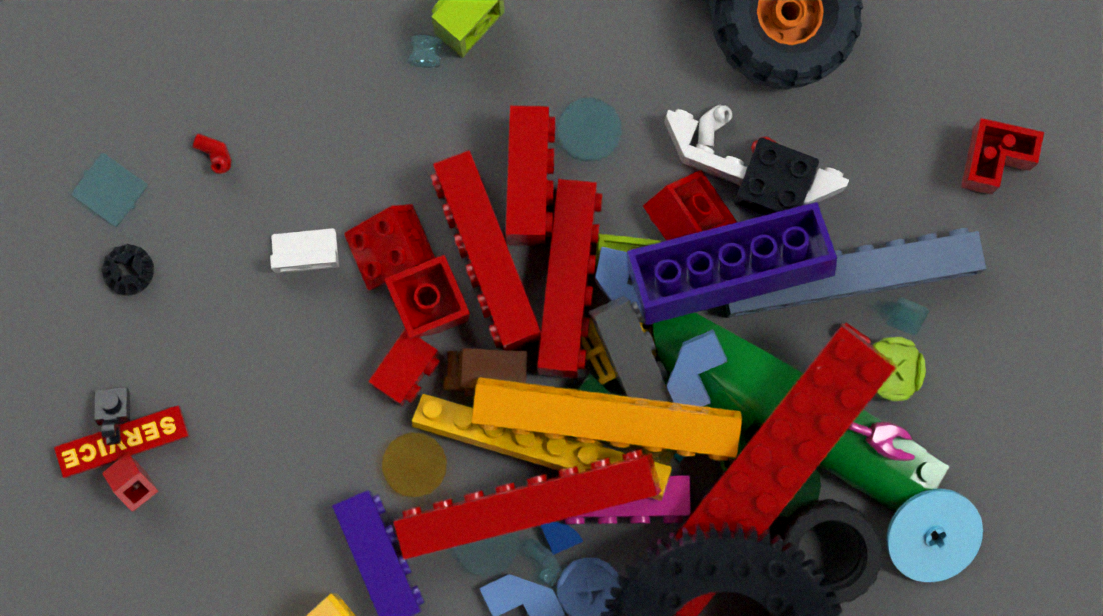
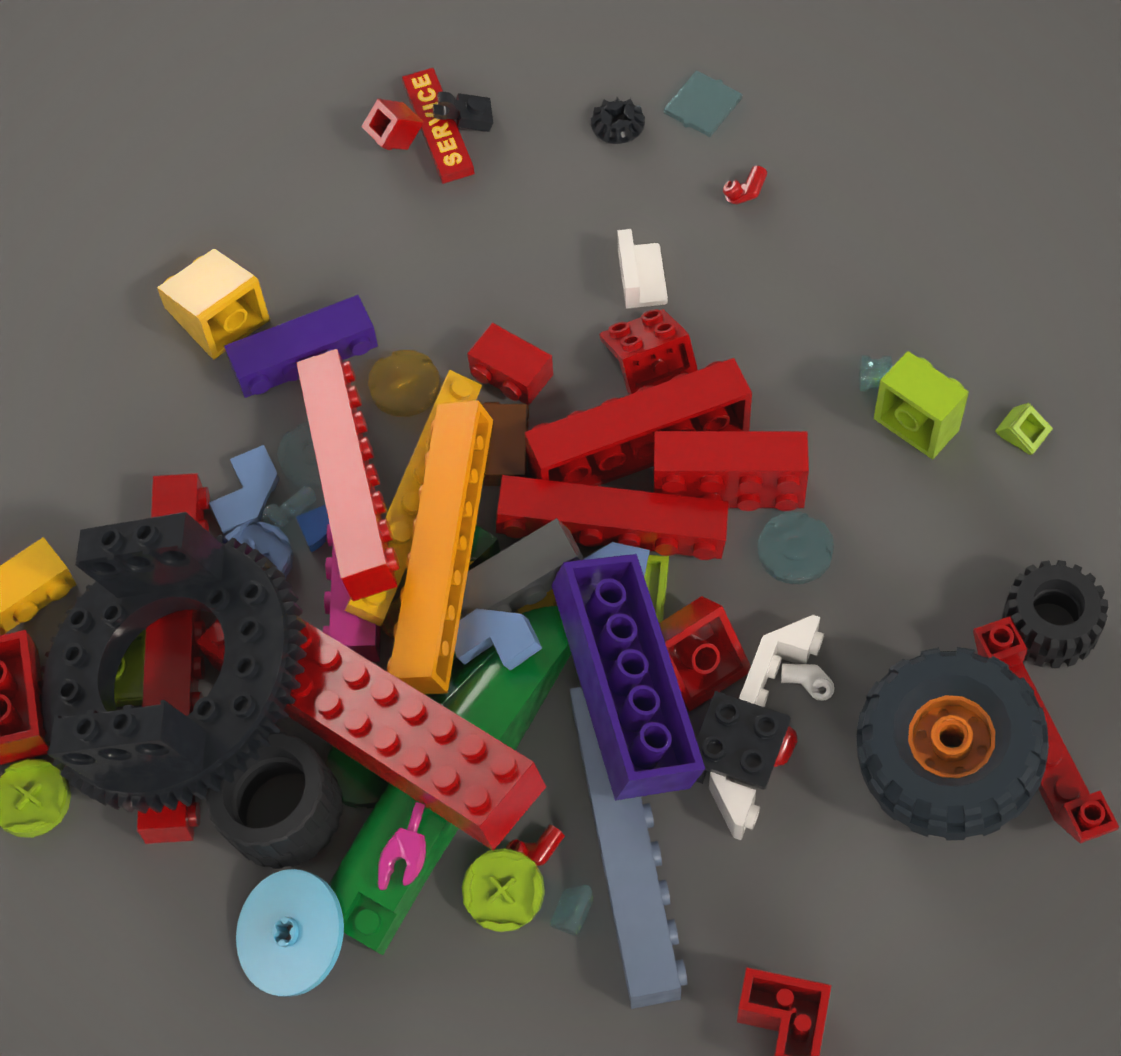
camera: 95 degrees right, 20 degrees down
(427, 298) = (583, 371): red slope -> none

